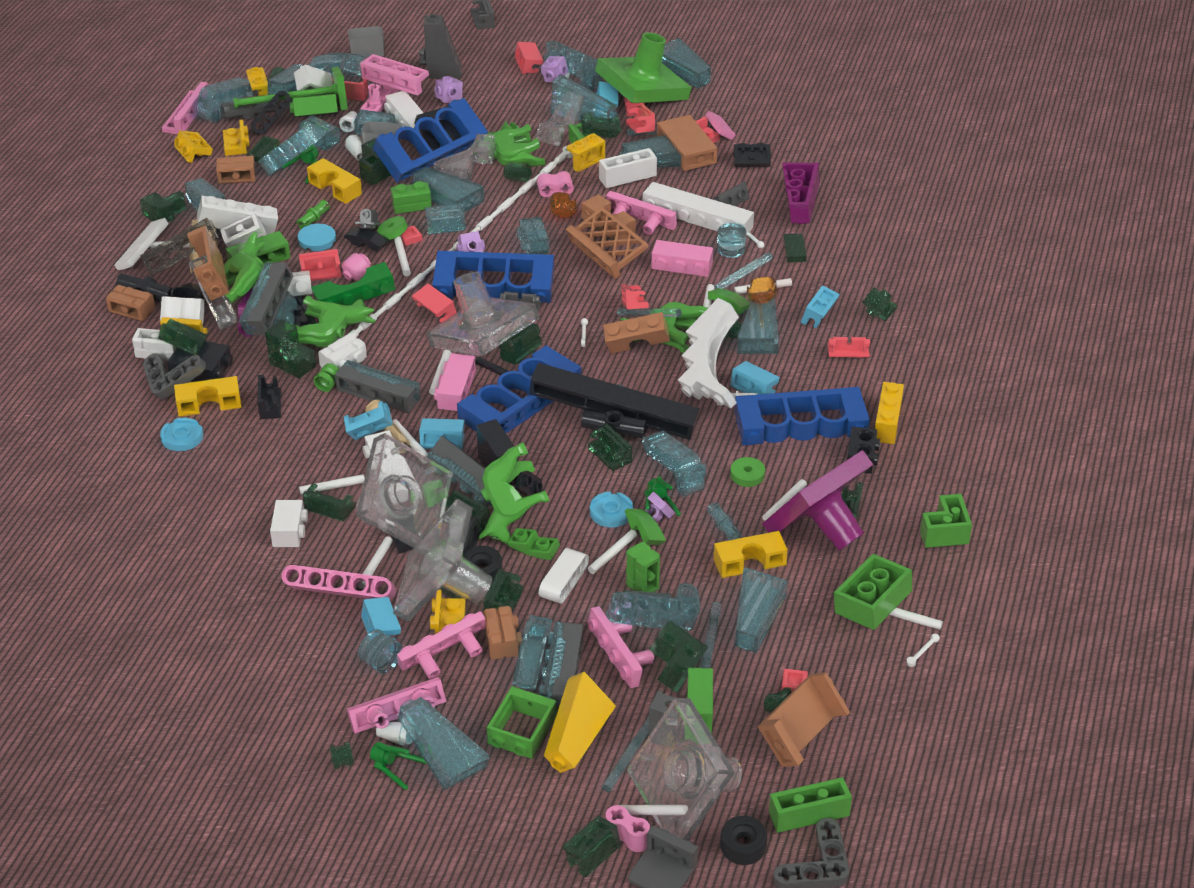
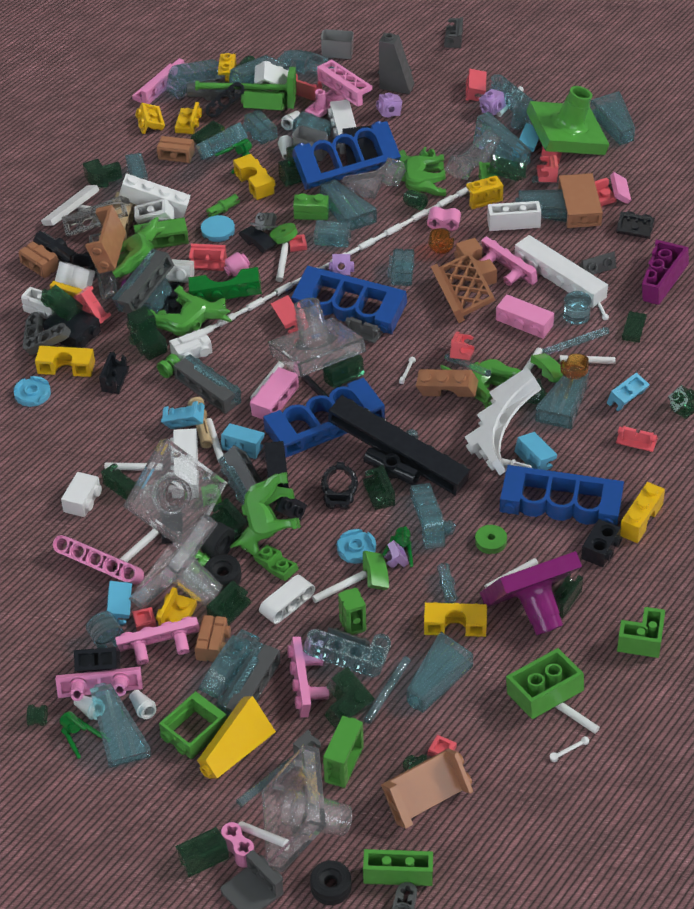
camera: 20 degrees right, 5 degrees up
(213, 333) = (91, 304): none -> coral hinge
(385, 681) = (96, 659): none -> black brick
(414, 631) = (144, 618): none -> coral tile
(456, 715) = (142, 704): none -> white cone
(573, 468) = (343, 499): none -> black piece

